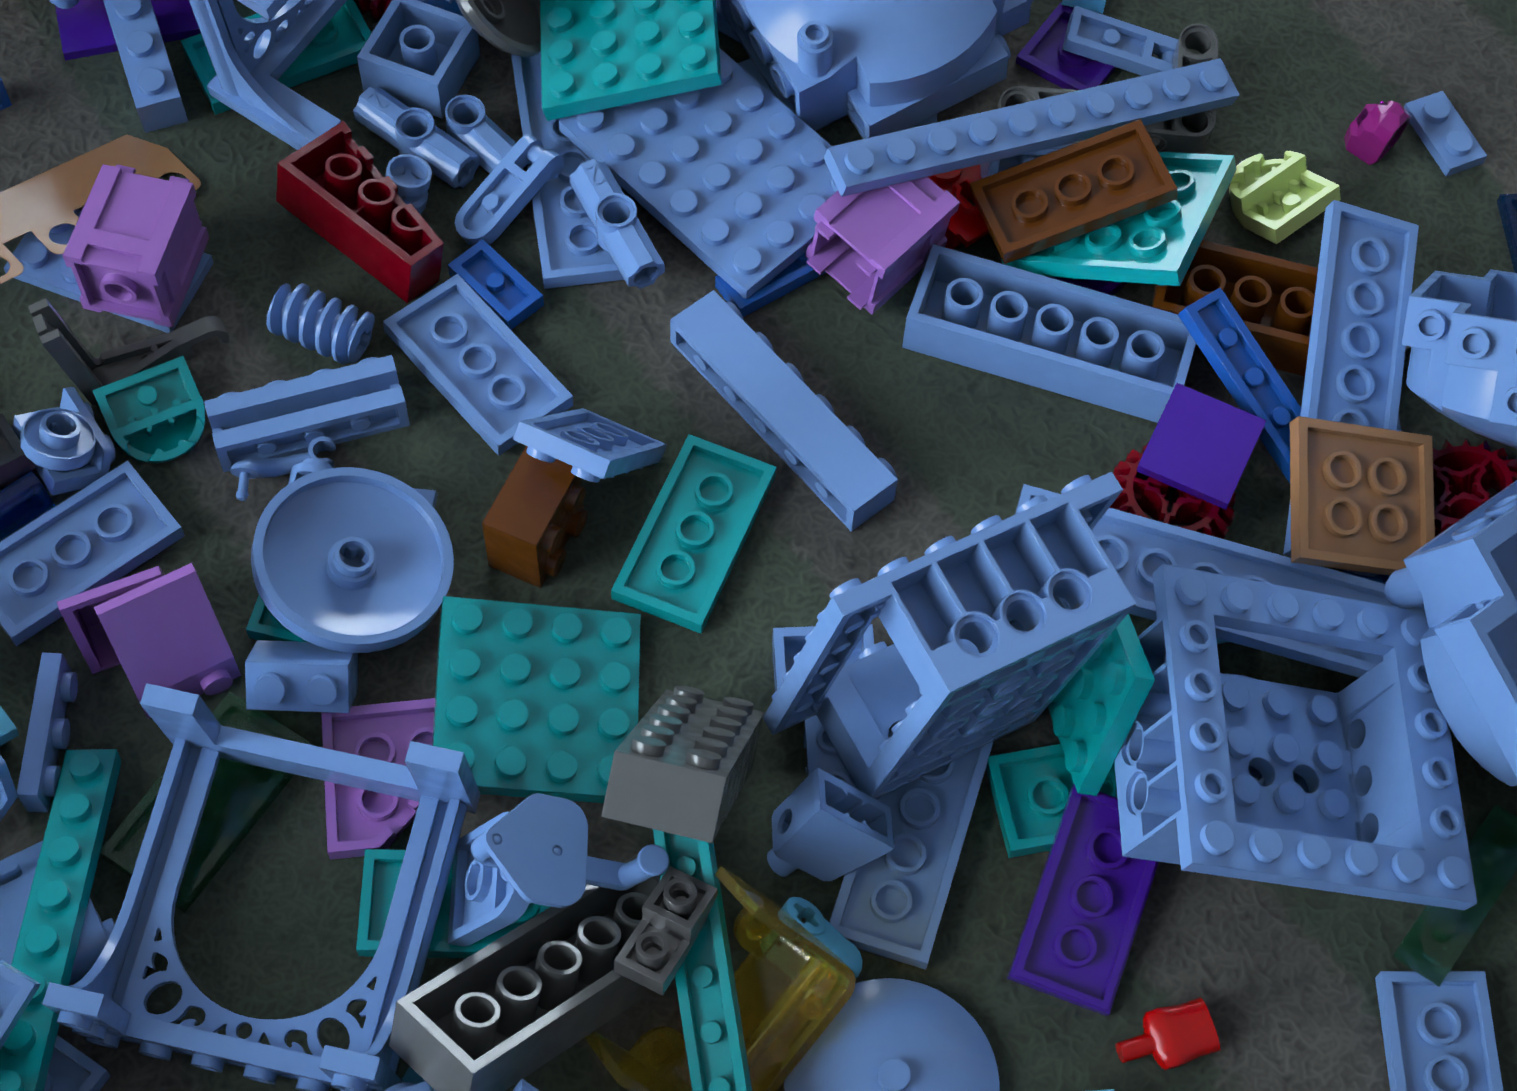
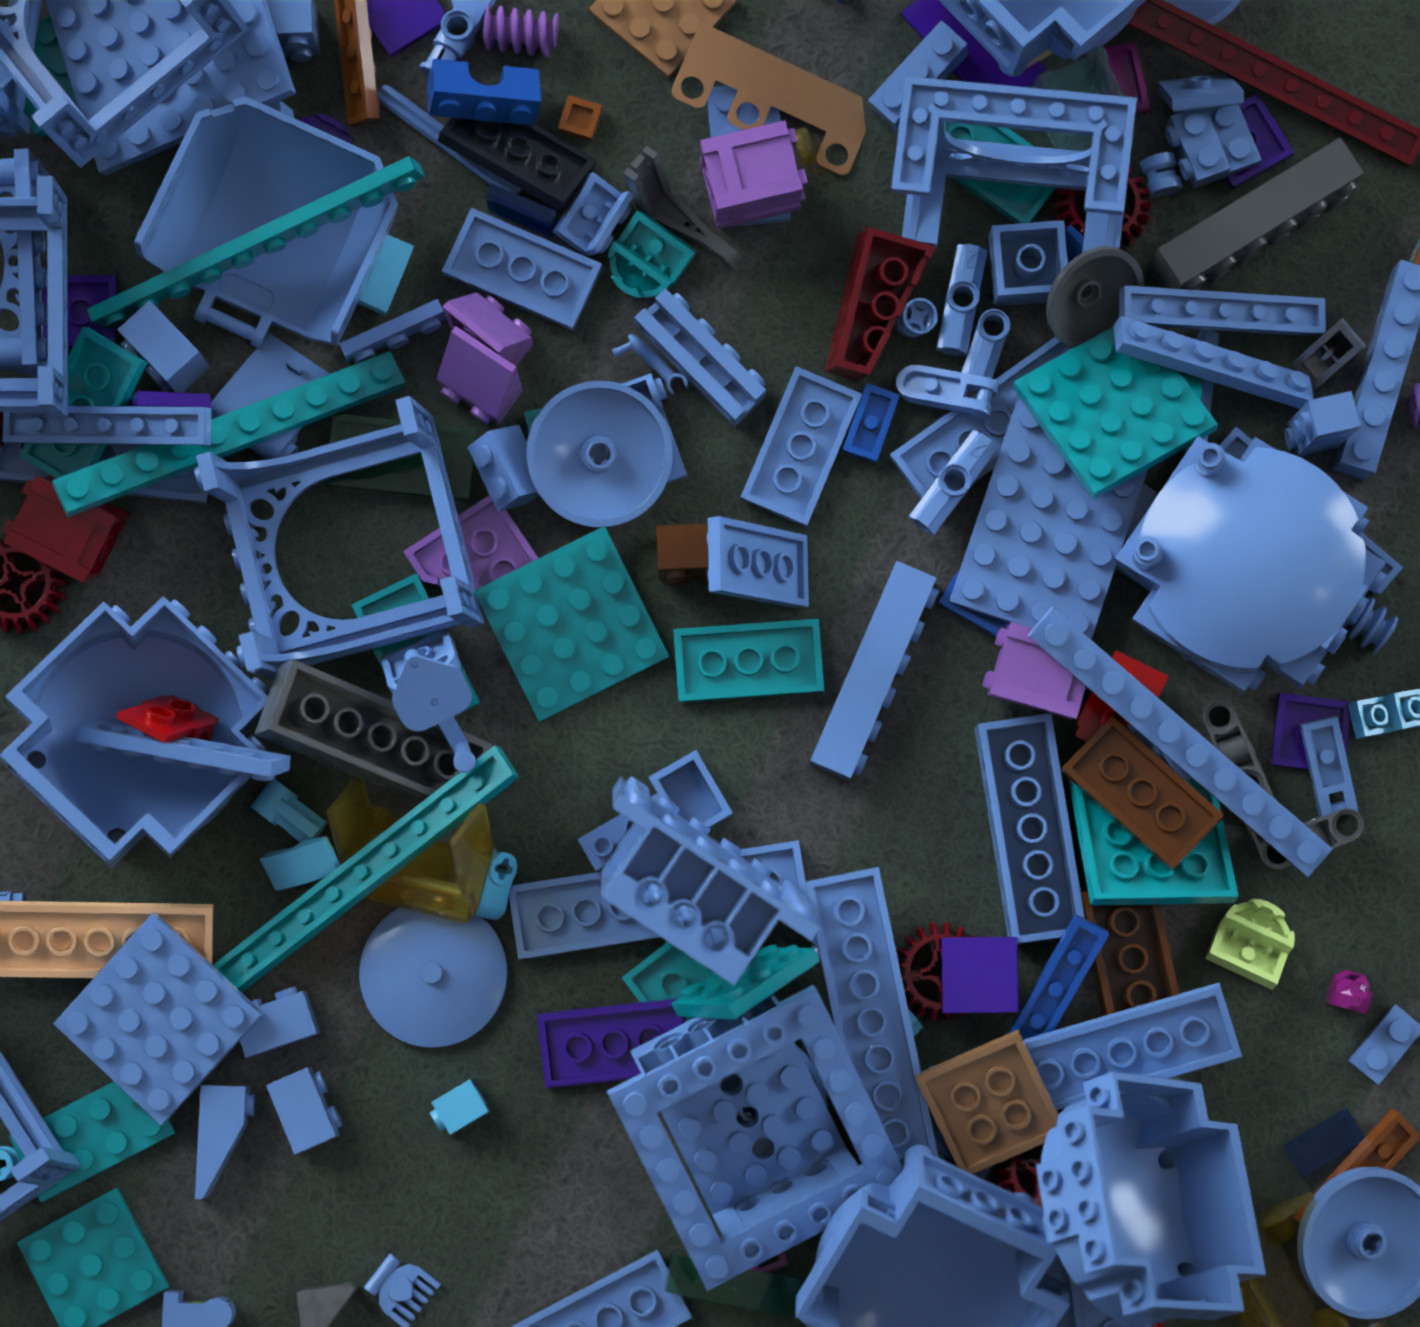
camera: 65 degrees right, 20 degrees up
(58, 439) = (583, 215): medium blue plate -> none
(319, 325) = (769, 326): medium blue piece -> none
(667, 930) = (429, 791): flat silver slope -> none
(684, 764) = (540, 748): dark grey brick -> none
(828, 829) = (566, 844): medium blue torso -> none
(1173, 1035) = (550, 1134): red piece -> none

